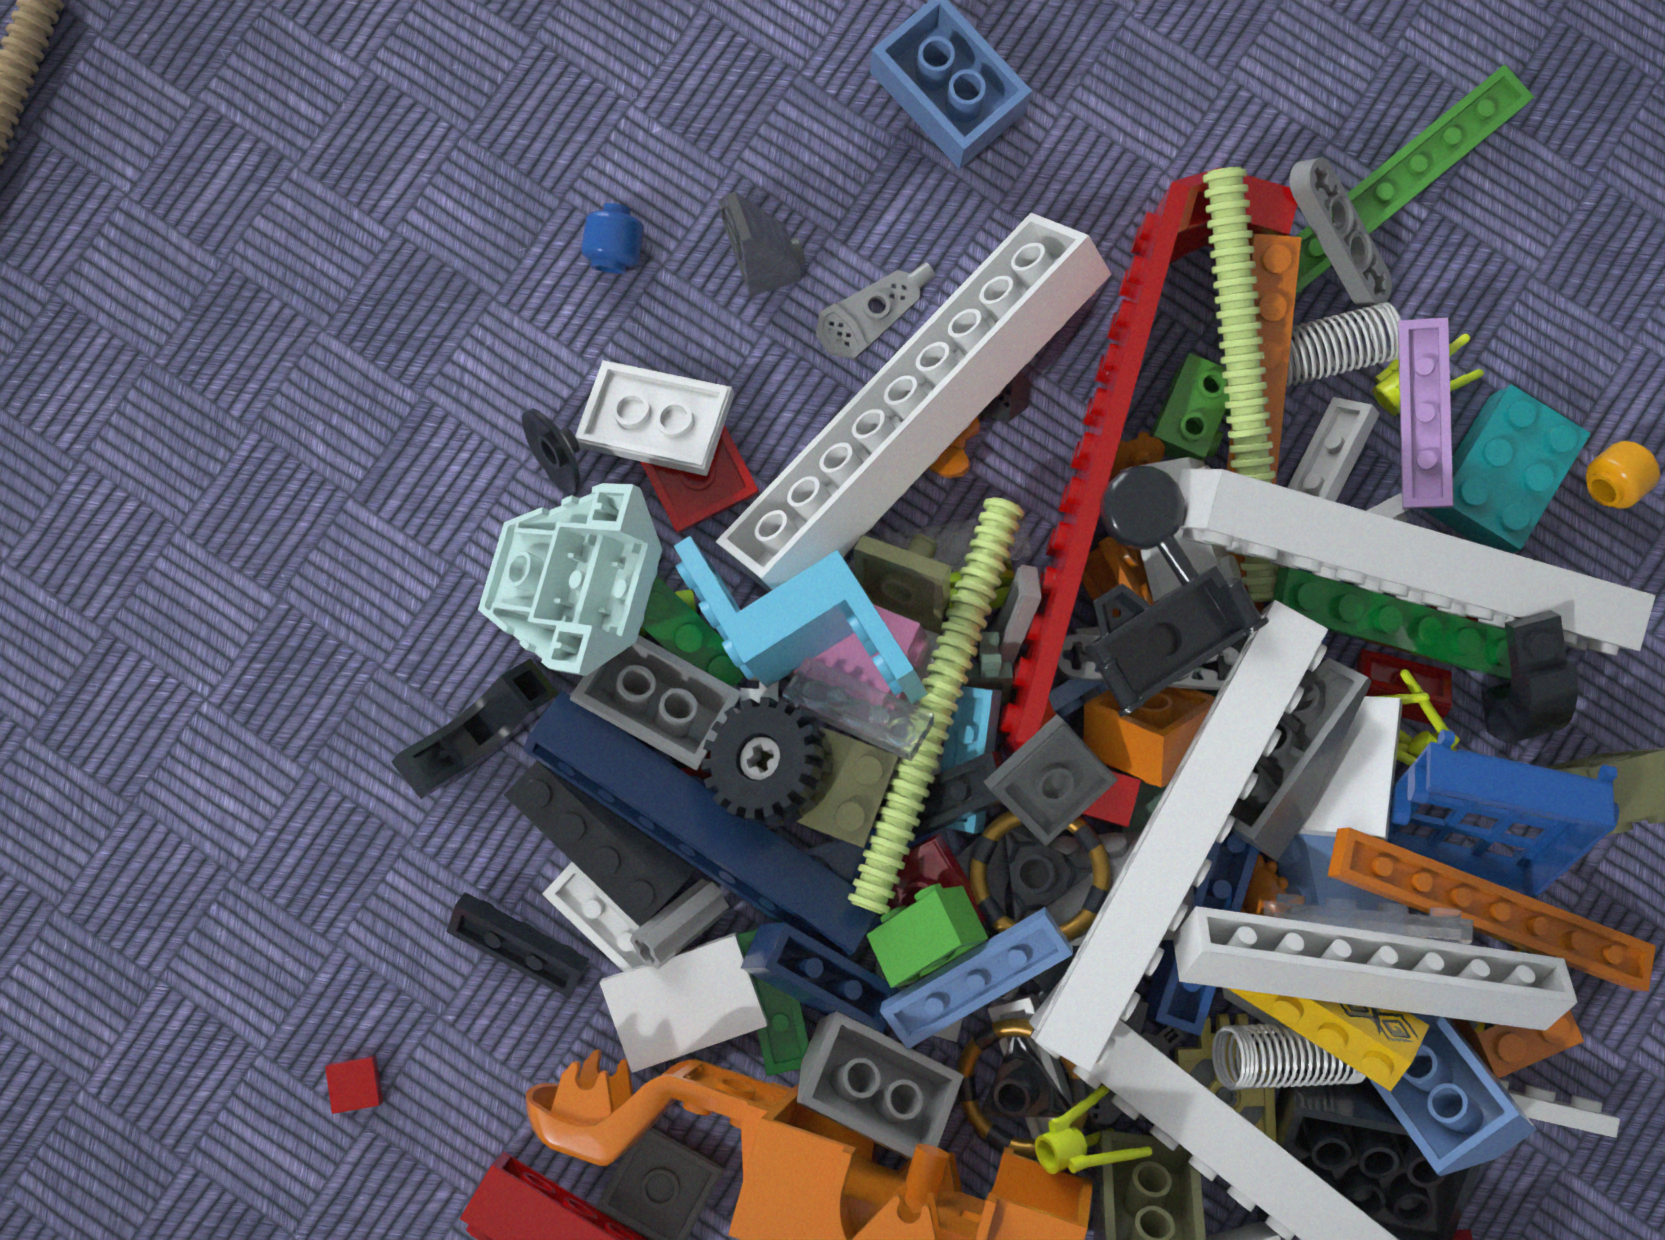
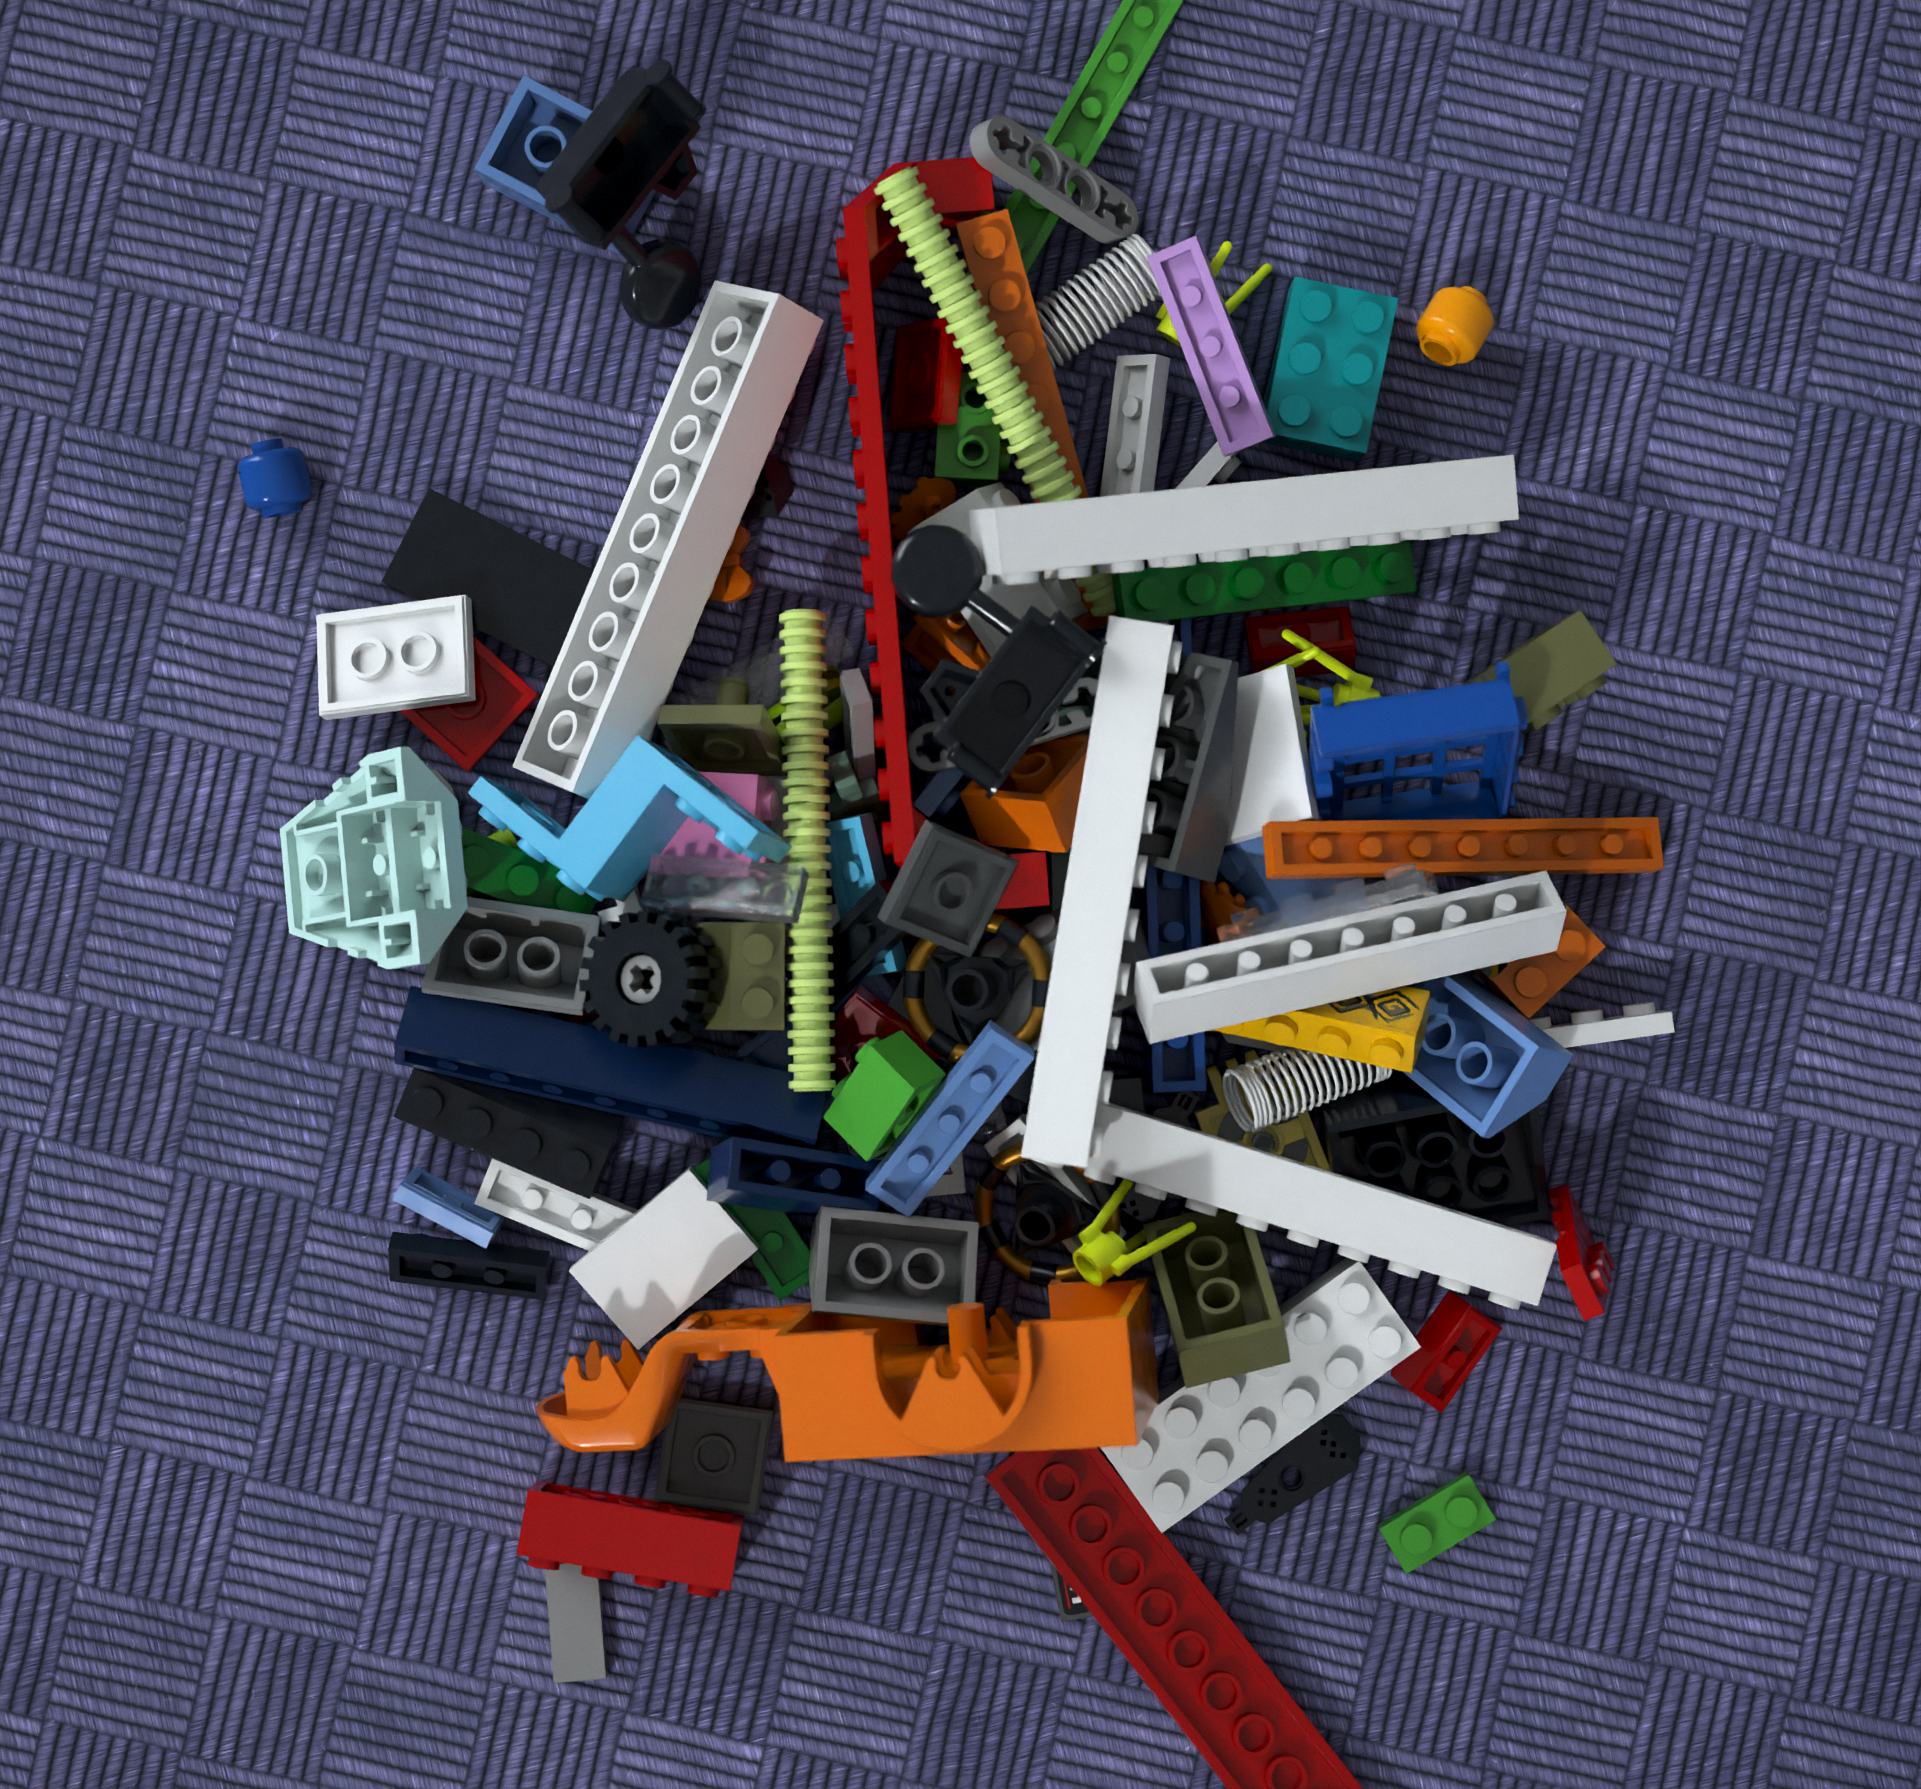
camera: 20 degrees left, 5 degrees up
(354, 1084) = (357, 1471): red tile -> none
(478, 731) = (341, 1061): black arch -> none
(519, 888) = (448, 1207): none -> medium blue tile
(553, 449) = (302, 732): black dish -> none
(679, 923) = (628, 1179): light grey axle -> none
(760, 245) = (437, 429): dark grey wedge -> none
(774, 398) = (515, 584): none -> black tile
(863, 324) = (579, 467): light grey piece -> none
(987, 82) = (608, 169): none -> black piece
(1178, 351) = (924, 377): none -> red tile
(1541, 684) = (1427, 601): black arch -> none

